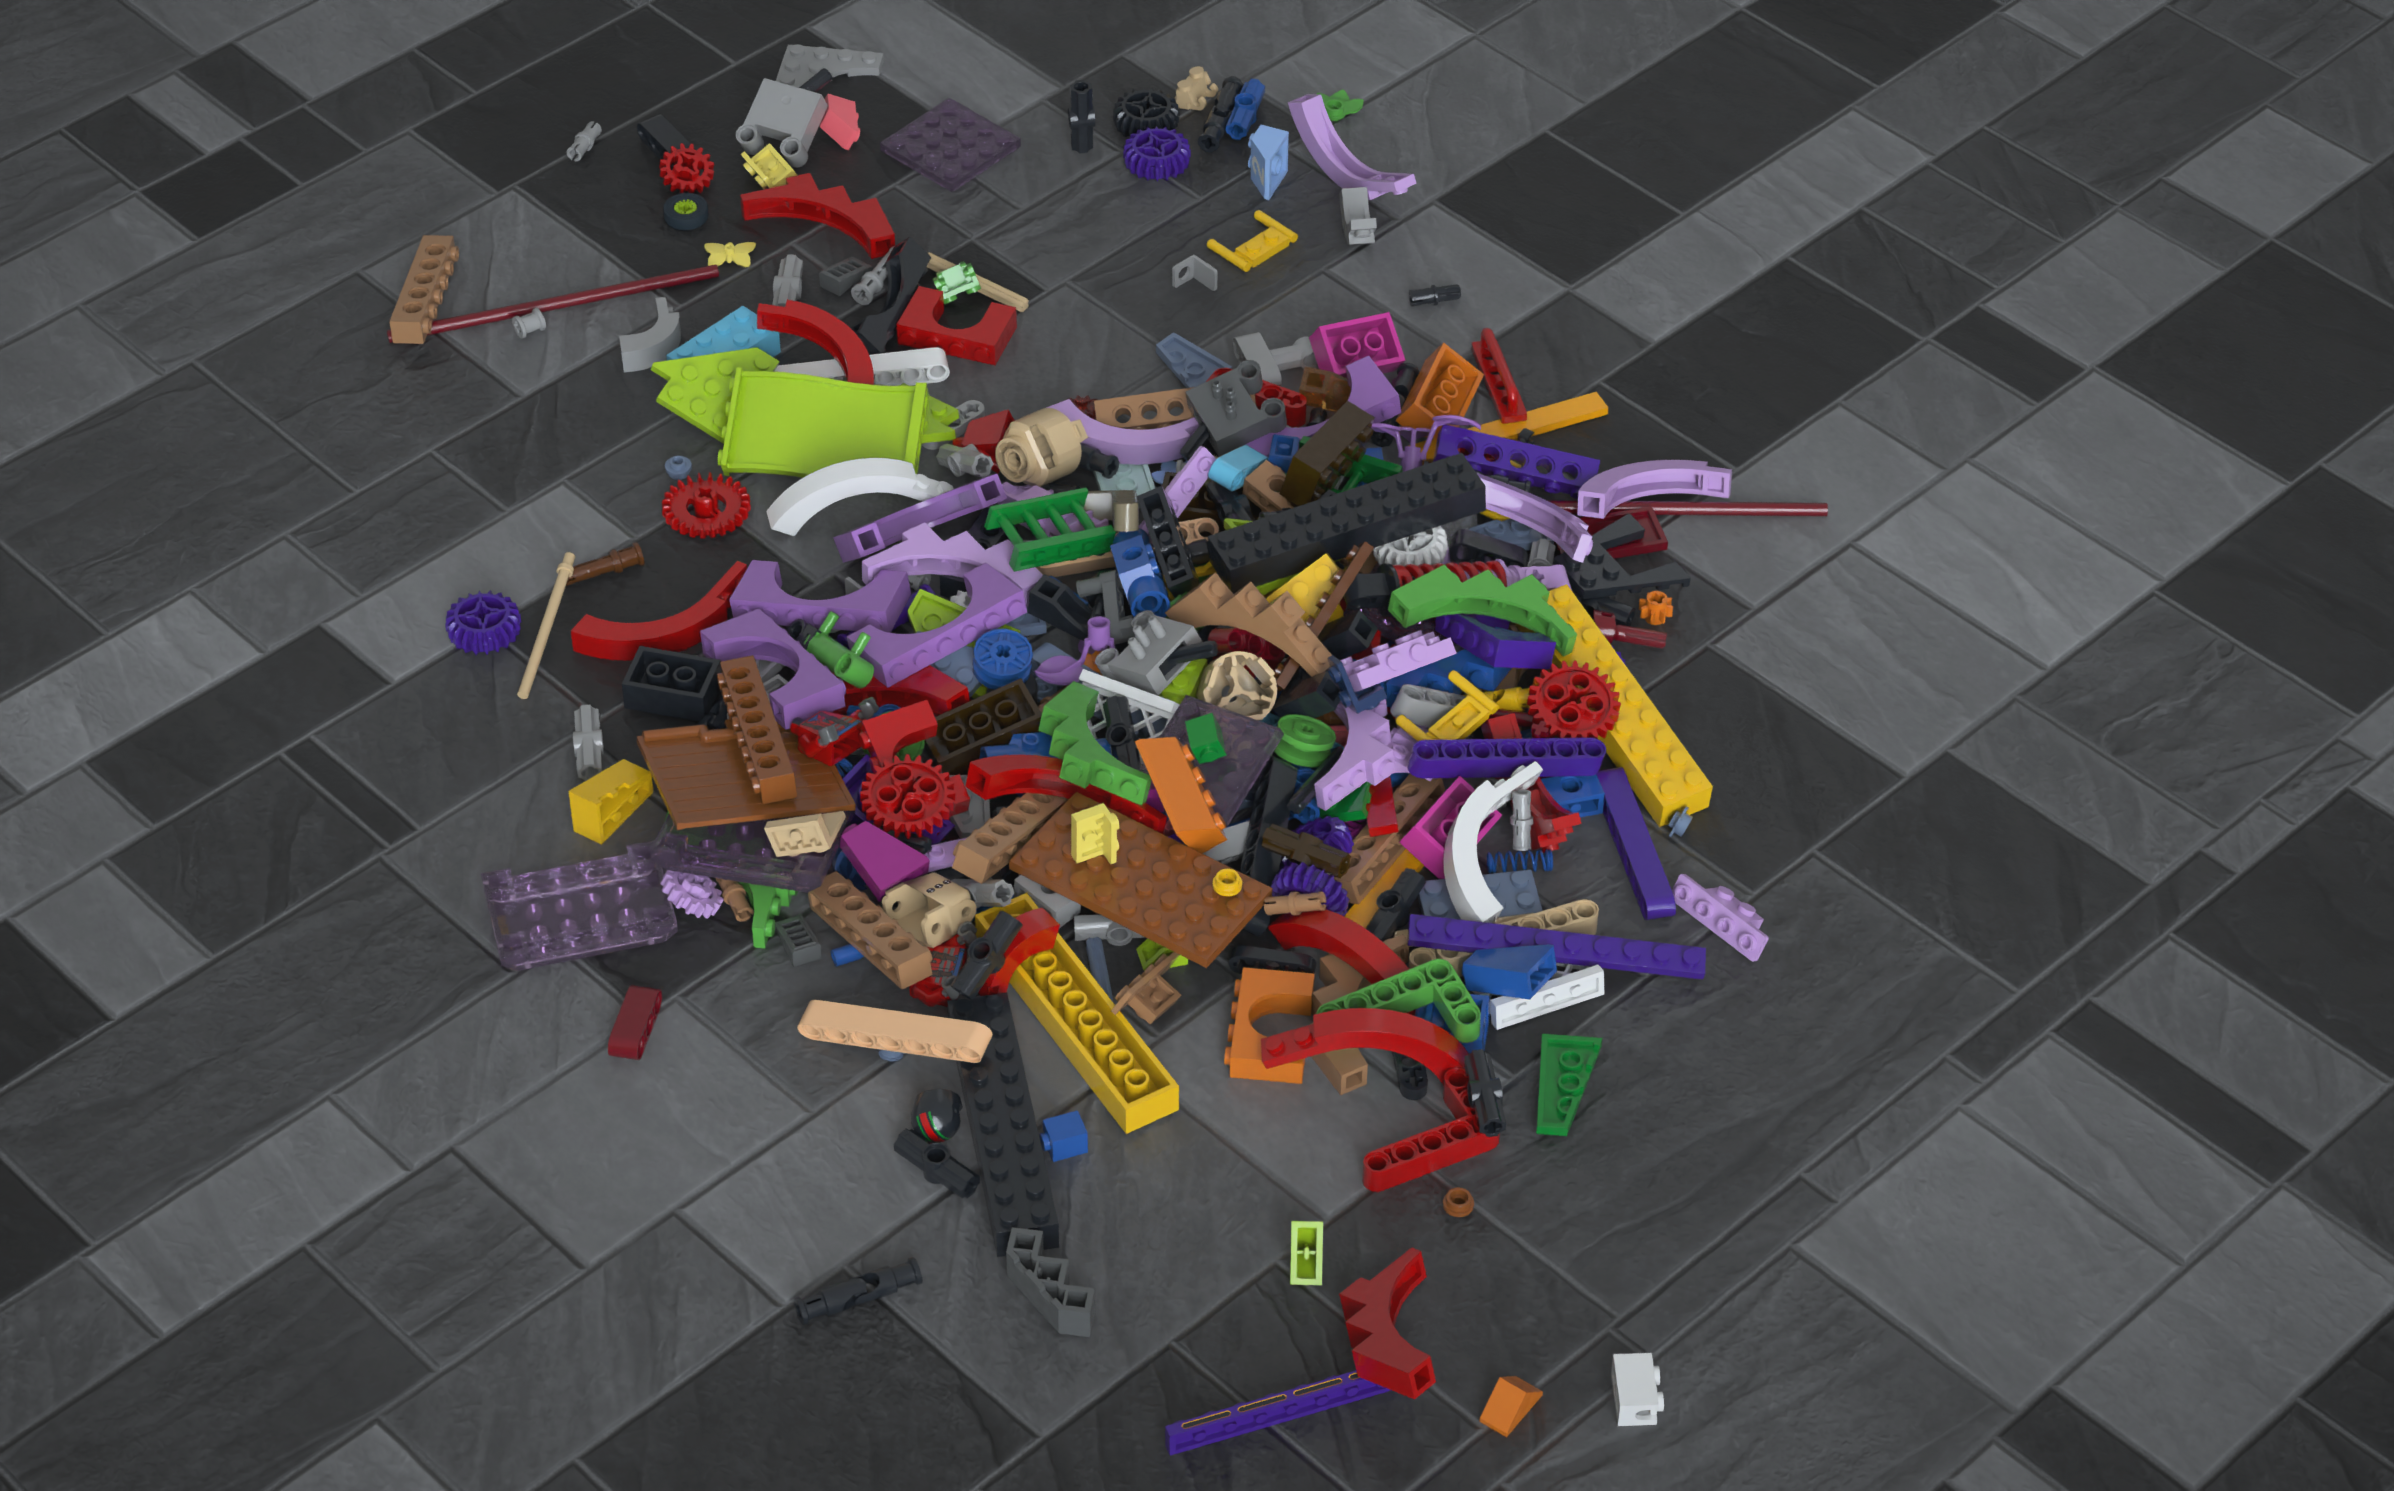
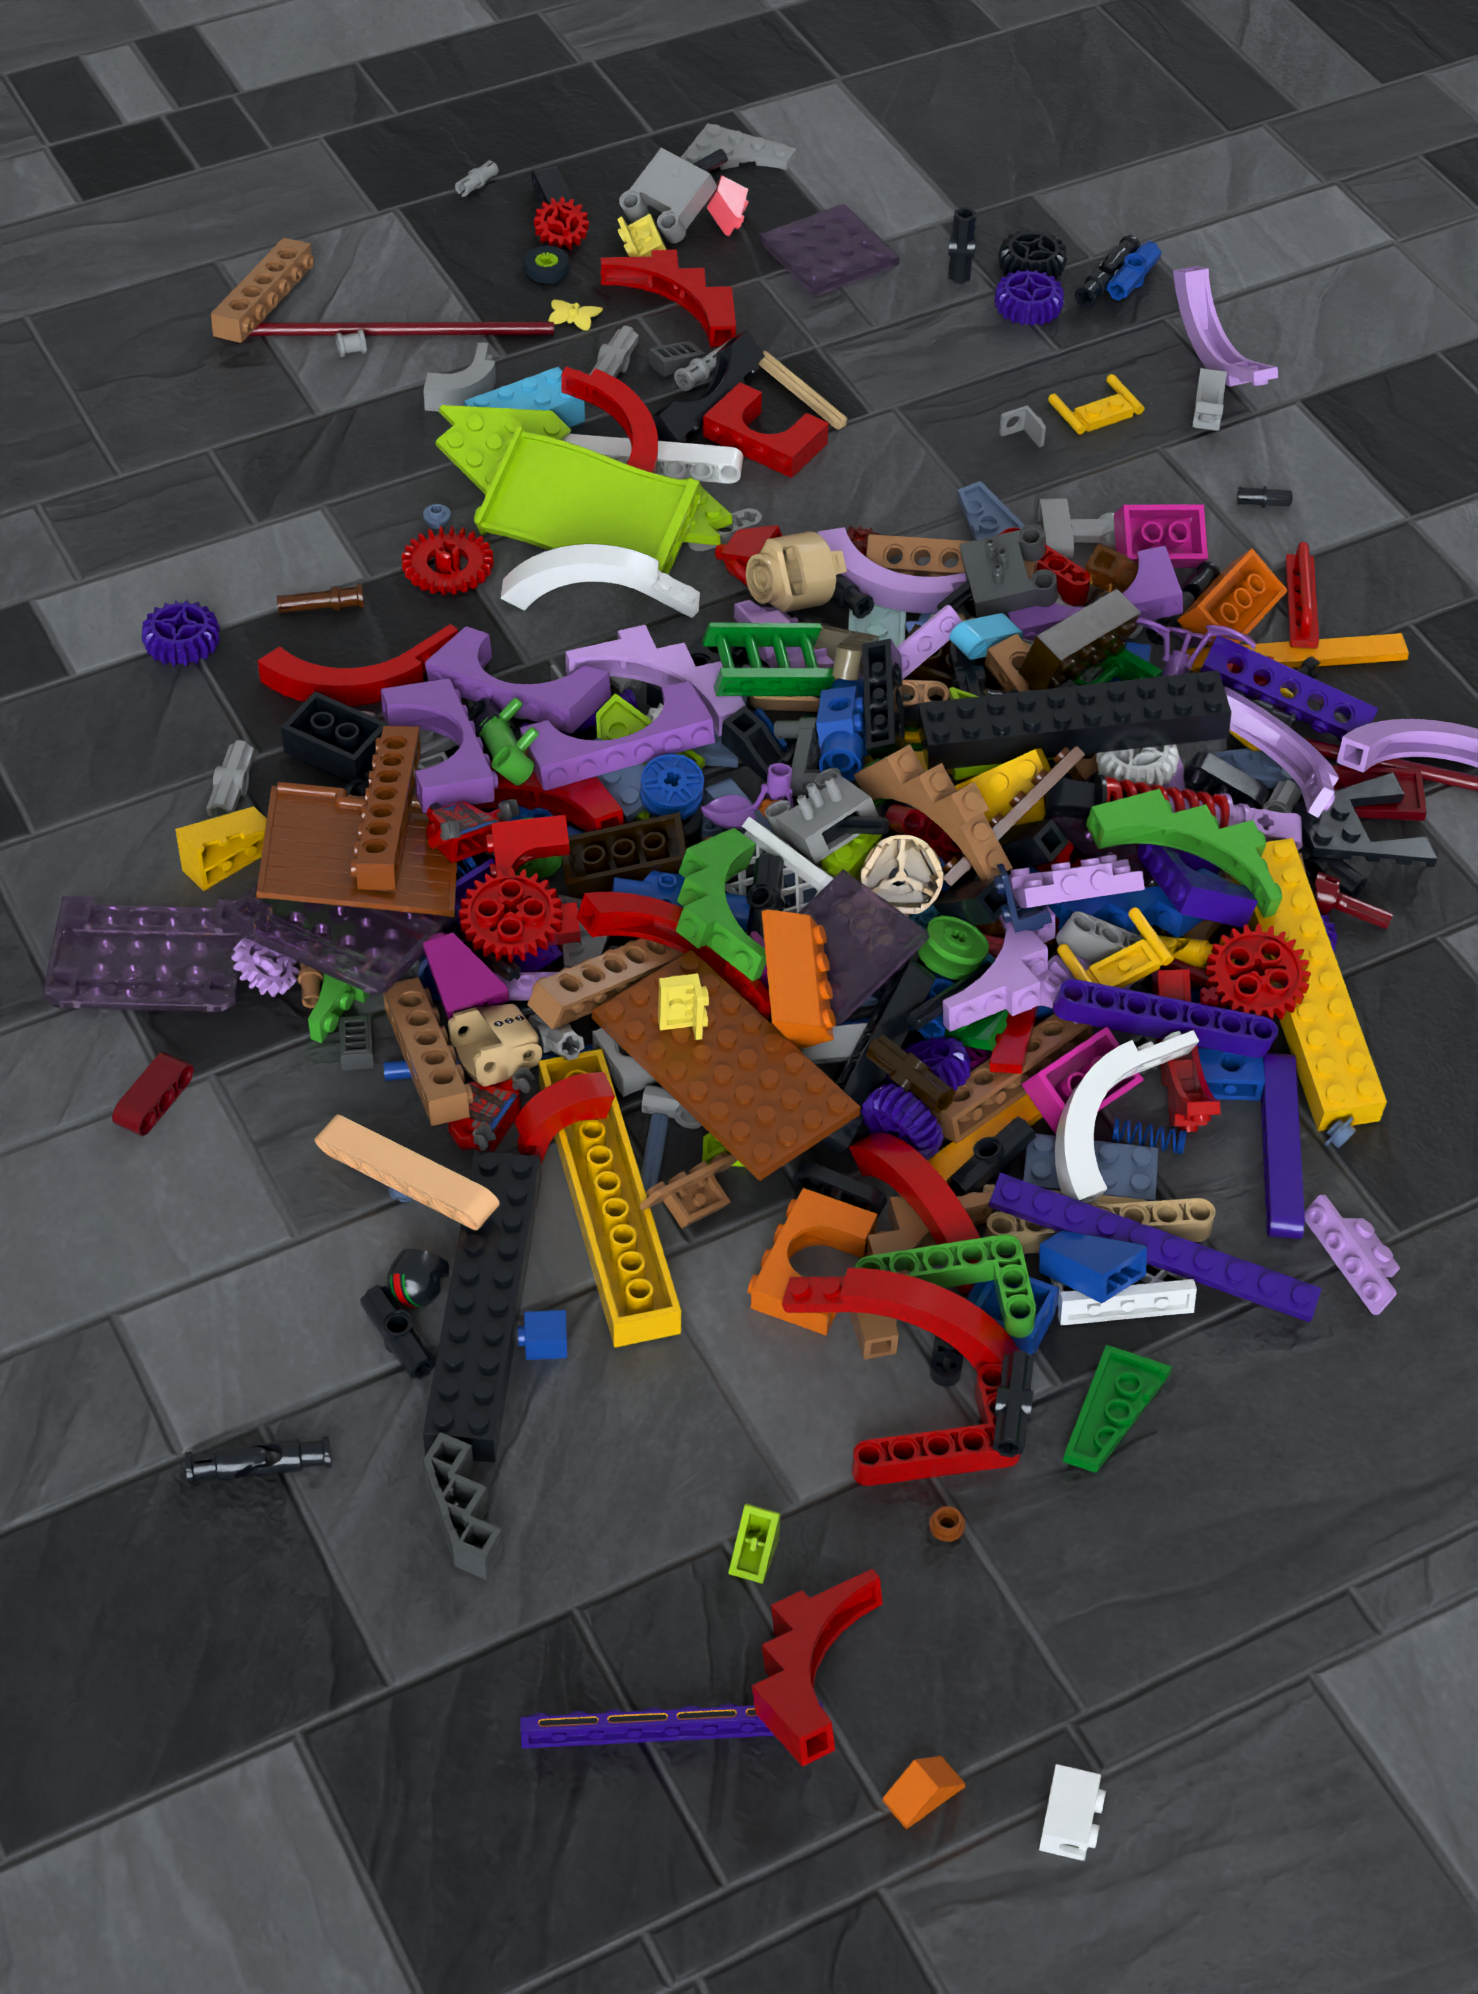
camera: 15 degrees right, 5 degrees up
(564, 571) = (278, 598): tan bar -> none
(804, 833) = (388, 932): tan bracket -> none
(932, 511) = (656, 617): medium lavender arch -> none
(956, 280) = (780, 384): piece -> none
(964, 460) = (716, 568): light grey piece -> none
(980, 966) = (523, 1112): black piece -> none
(1194, 89) = (1088, 242): tan piece -> none
(1205, 738) = (843, 923): green brick -> none
(1227, 882) = (810, 1091): yellow plate -> none
(1268, 158) = (1138, 324): light blue slope -> none
(1283, 450) = (1038, 623): blue slope -> none
(1295, 903) = (879, 1130): medium nougat pin -> none
(1340, 105) = (1230, 285): bright green plate -> none
(1521, 820) = (1161, 1091): light grey pin -> none
(1655, 607) = (1390, 882): orange gear -> none

